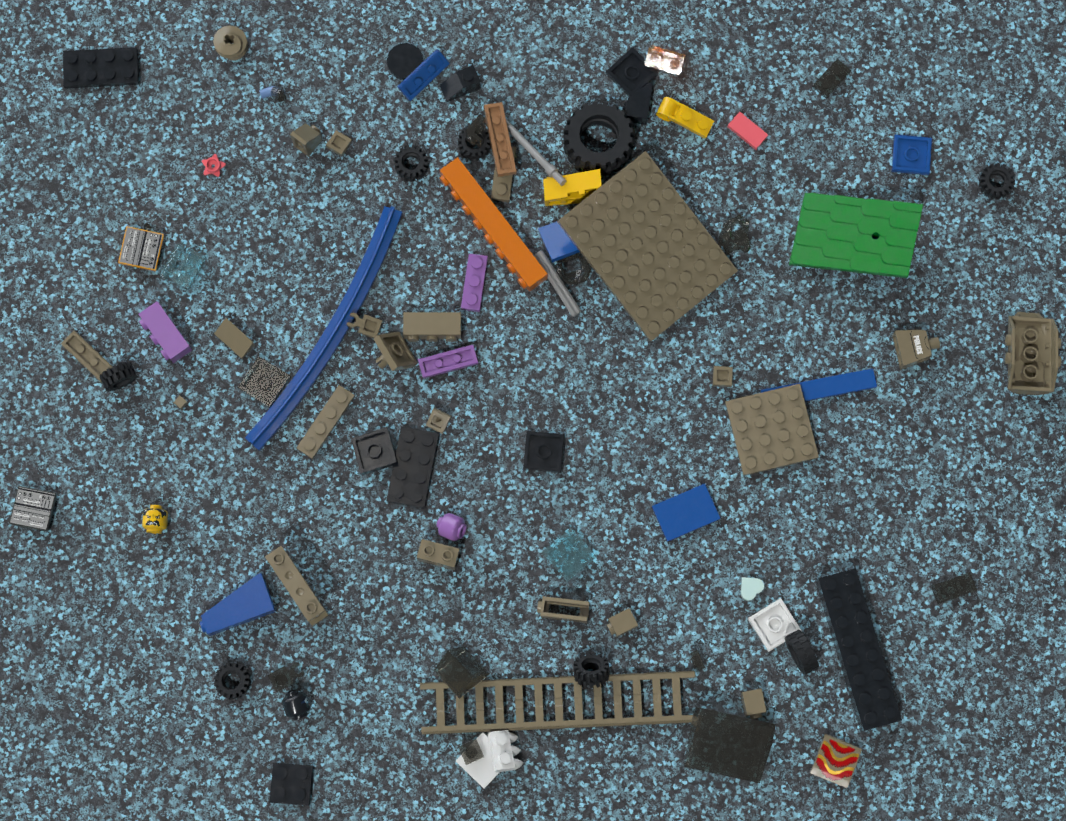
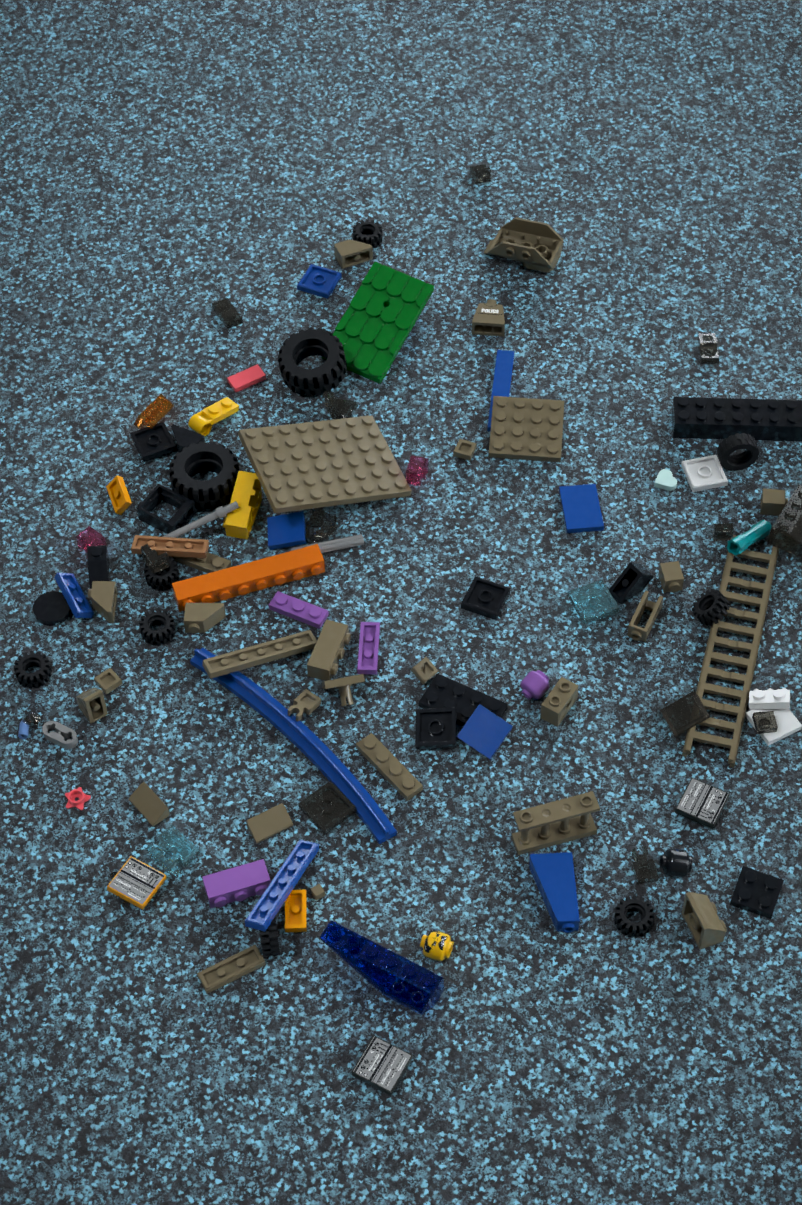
camera: 70 degrees left, 25 degrees down
(114, 484) = (385, 970): none -> clear blue wedge
(154, 390) = (296, 911): none -> light orange plate
(167, 370) = (281, 885): none -> blue tile
(223, 229) = (149, 804): none -> dark tan slope
(242, 743) = (703, 920): none -> dark tan slope
(276, 125) = (58, 736): none -> light grey beam
(330, 83) = (32, 678): none -> black tyre
(368, 713) = (702, 803): none -> tile
(383, 495) = (484, 731): none -> blue tile
(404, 266) = (259, 654): none -> dark tan plate
(426, 104) = (104, 598): none -> dark tan slope
(433, 198) = (202, 616): none -> dark tan slope
(488, 66) = (89, 537): none -> clear pink brick
(545, 135) = (179, 519): none -> black window
(553, 67) = (118, 495): none -> light orange plate
(602, 585) = (630, 582): none -> black slope
(676, 337) = (417, 470): none -> clear pink brick
(694, 689) = (742, 542): none -> teal axle
(778, 165) = (307, 344): none -> black tyre
(960, 173) = (352, 253): none -> dark tan slope

